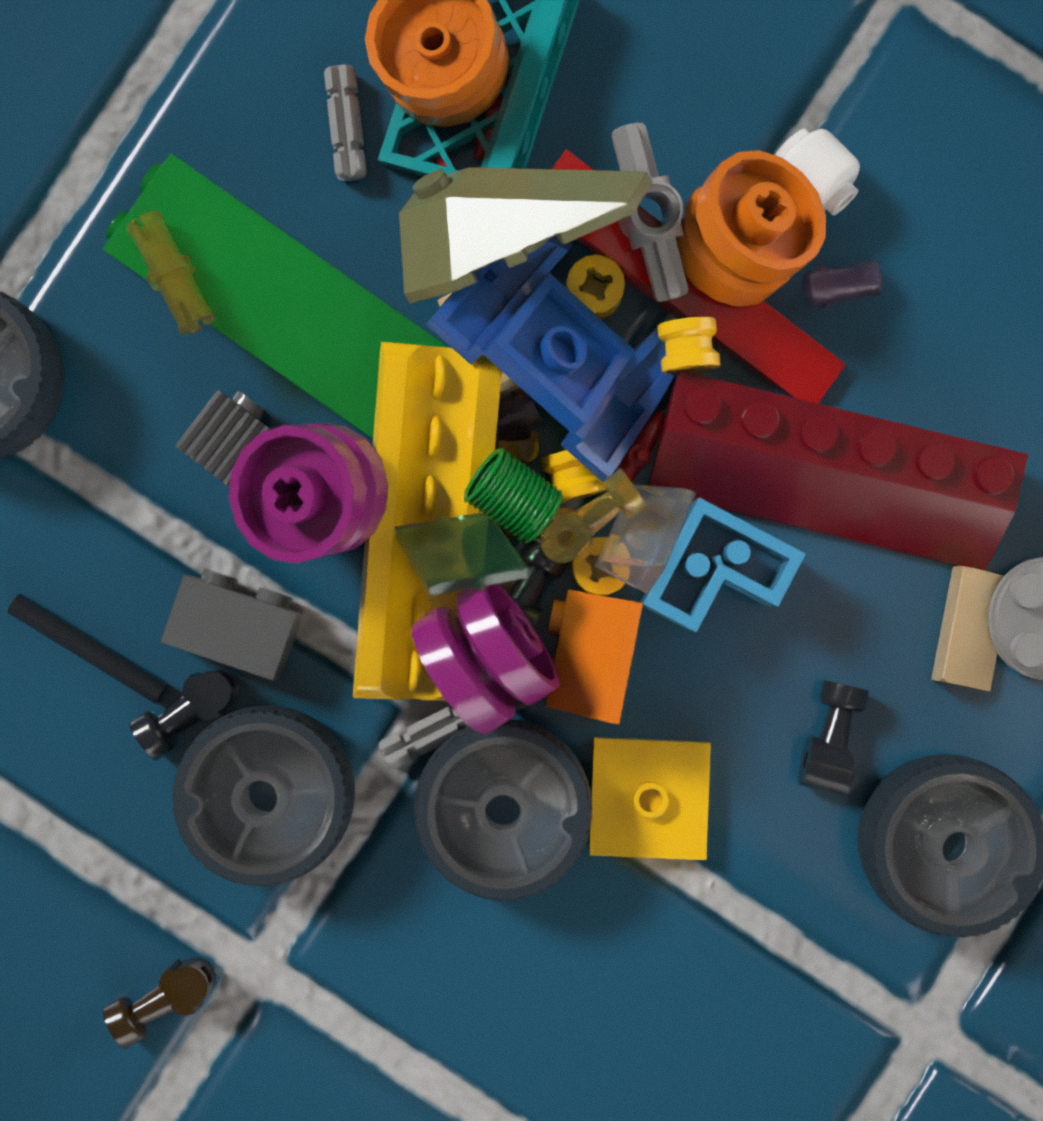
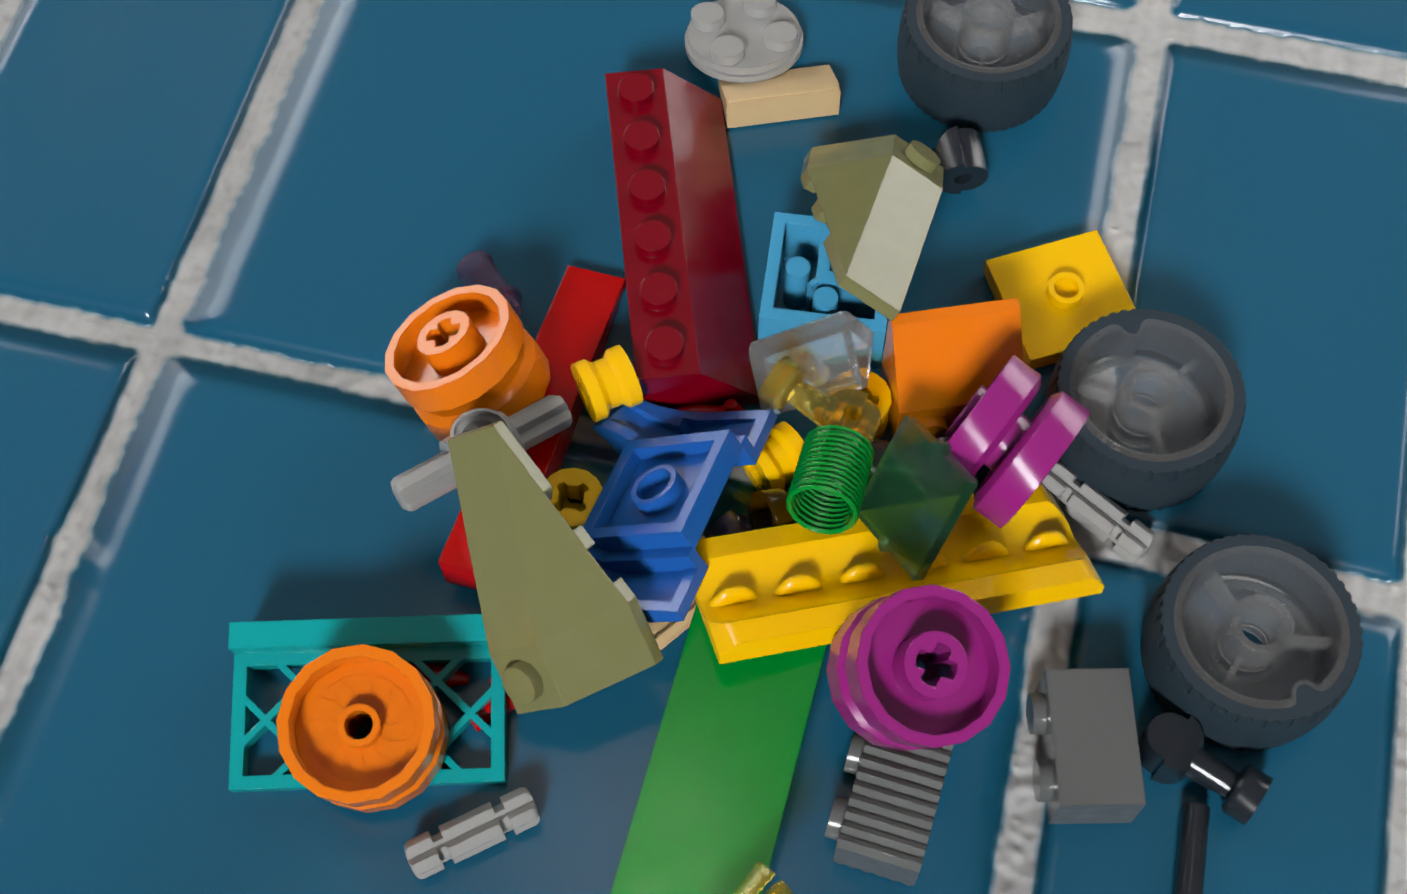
camera: 110 degrees left, 25 degrees down
(776, 645) = (878, 211): none -> olive wedge
(825, 164) = (370, 334): white head -> none

